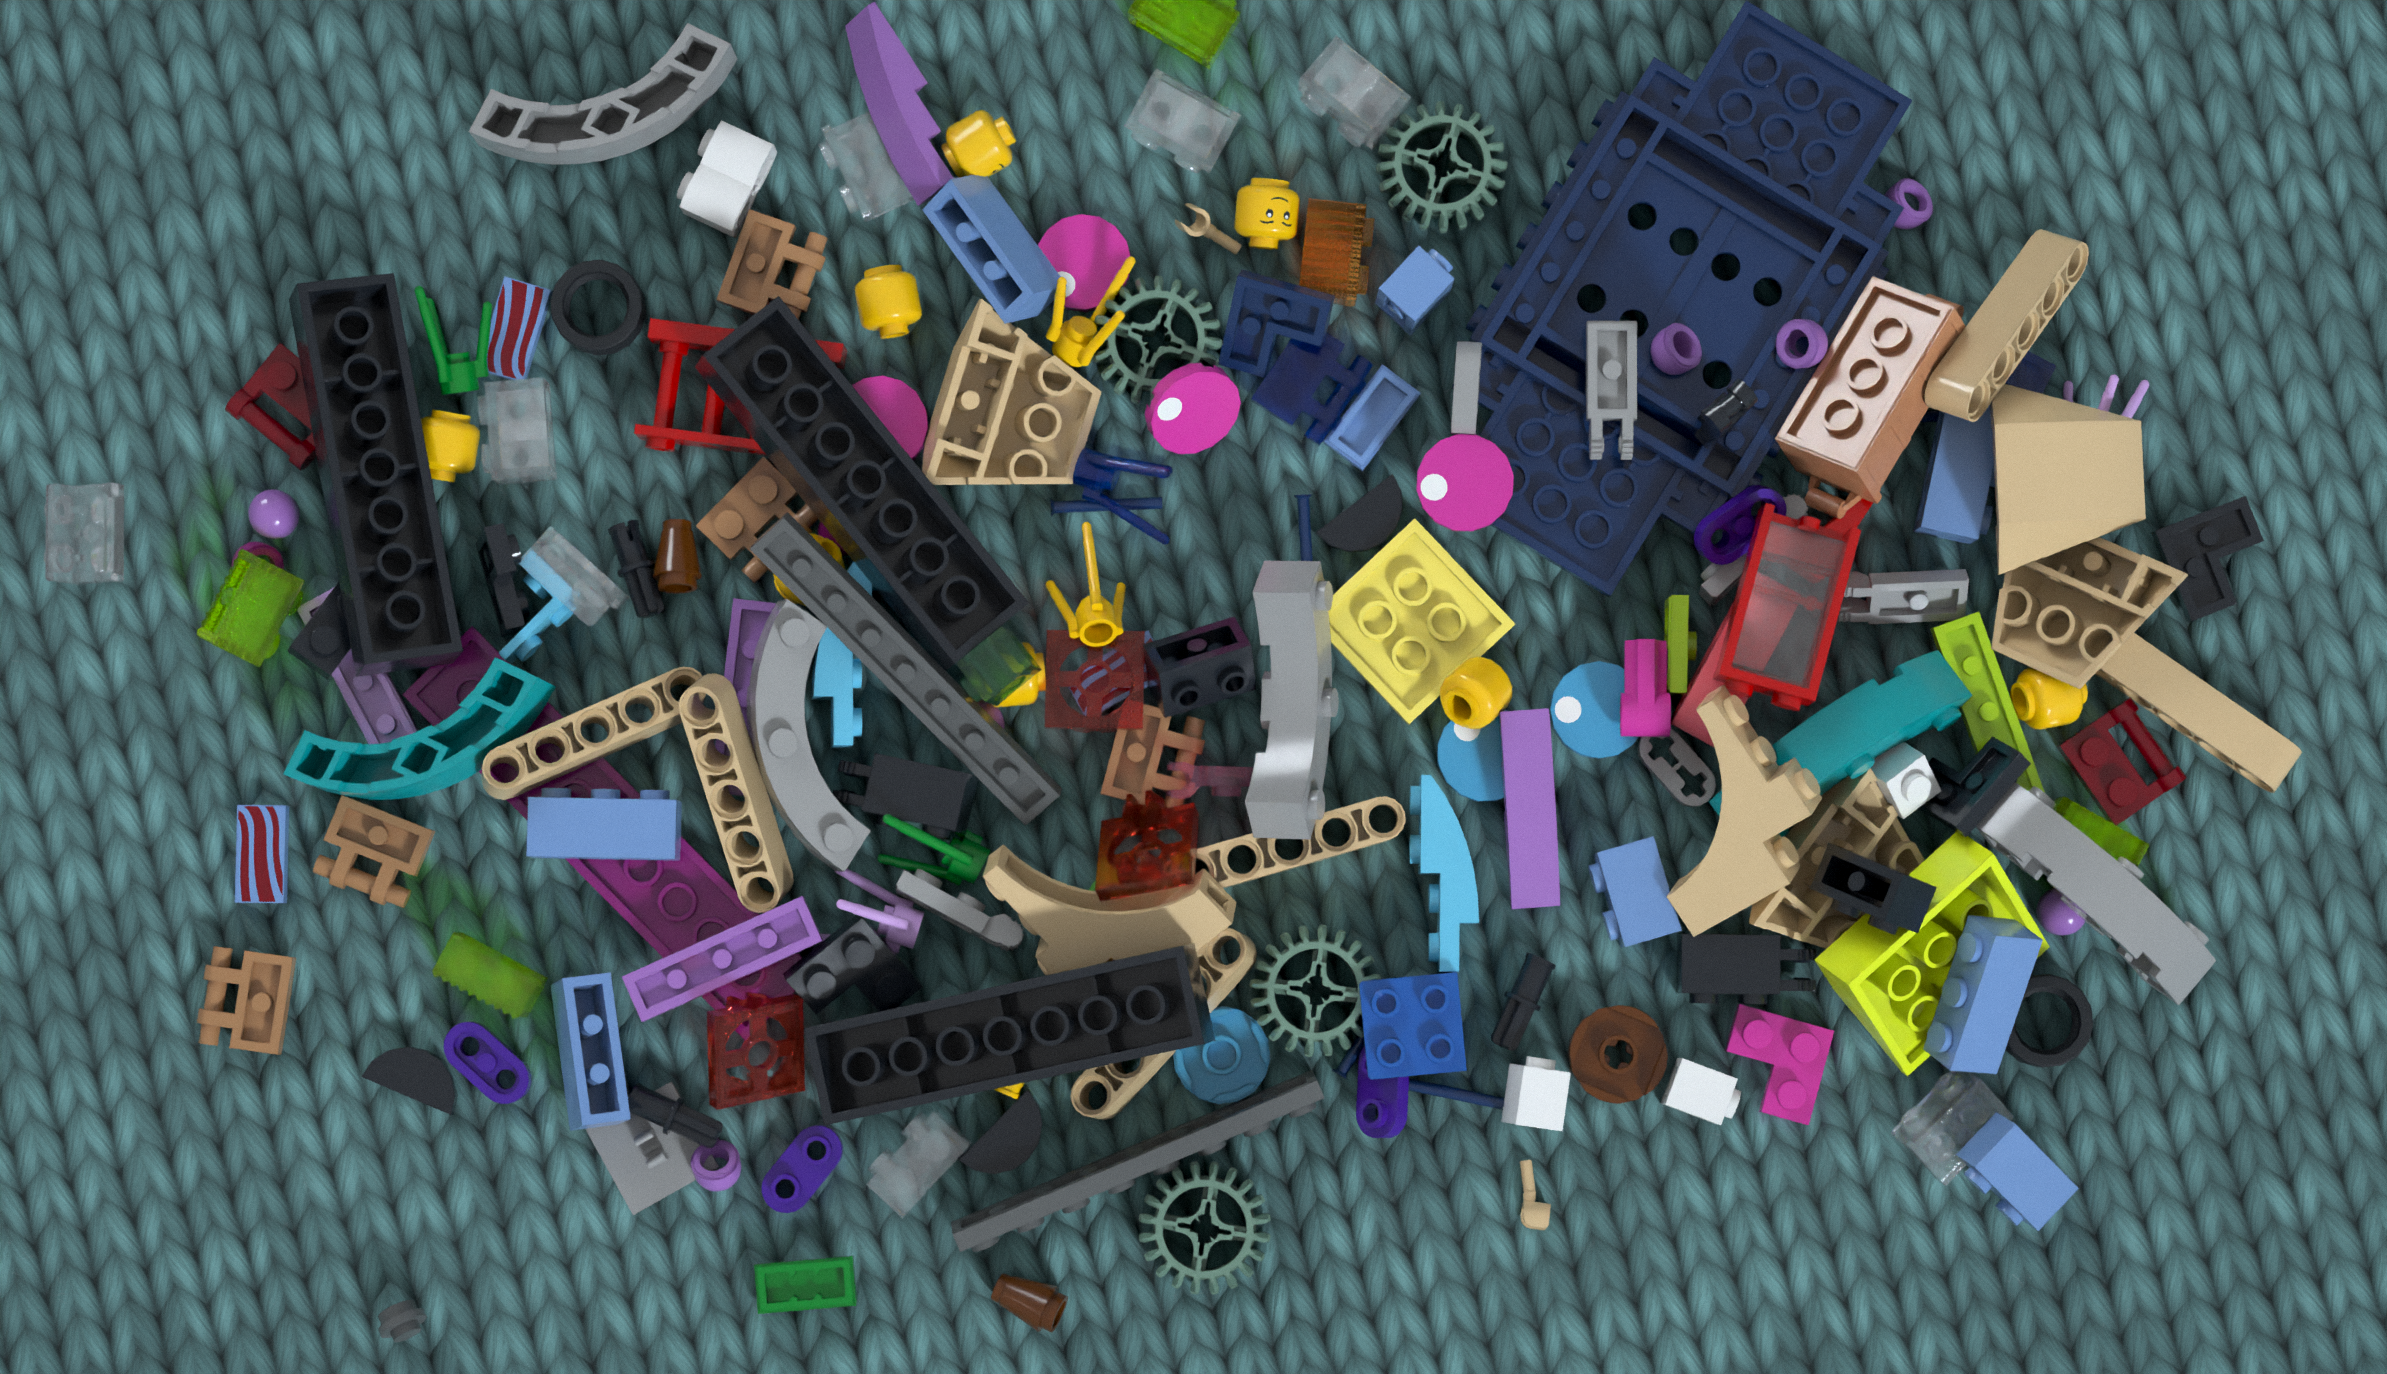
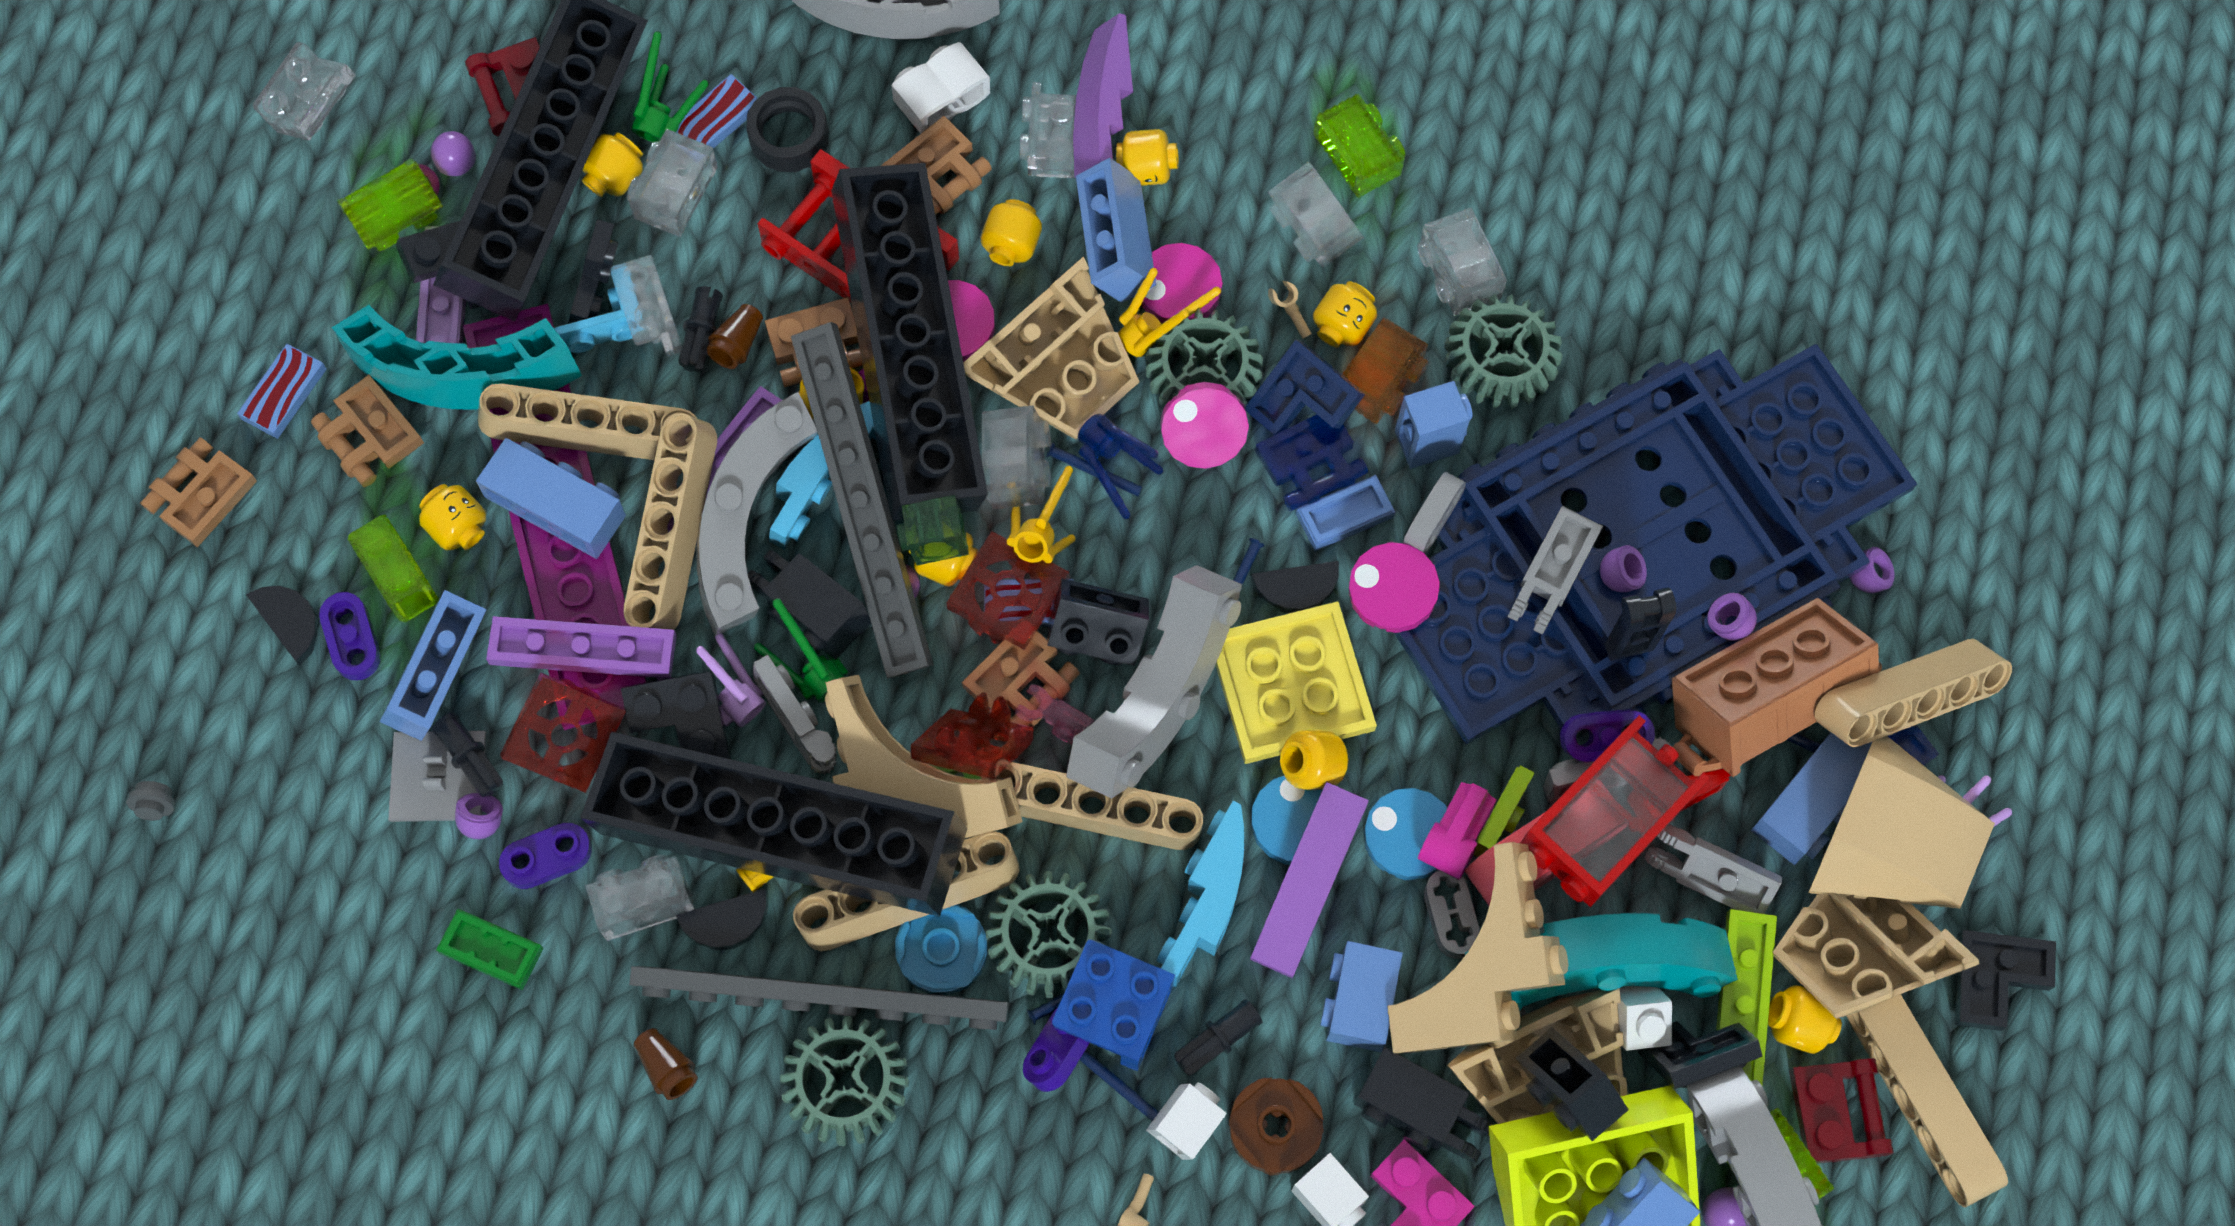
camera: 25 degrees right, 15 degrees down
(515, 894) = (452, 517): none -> yellow head
(1025, 539) = (1015, 457): none -> clear brick

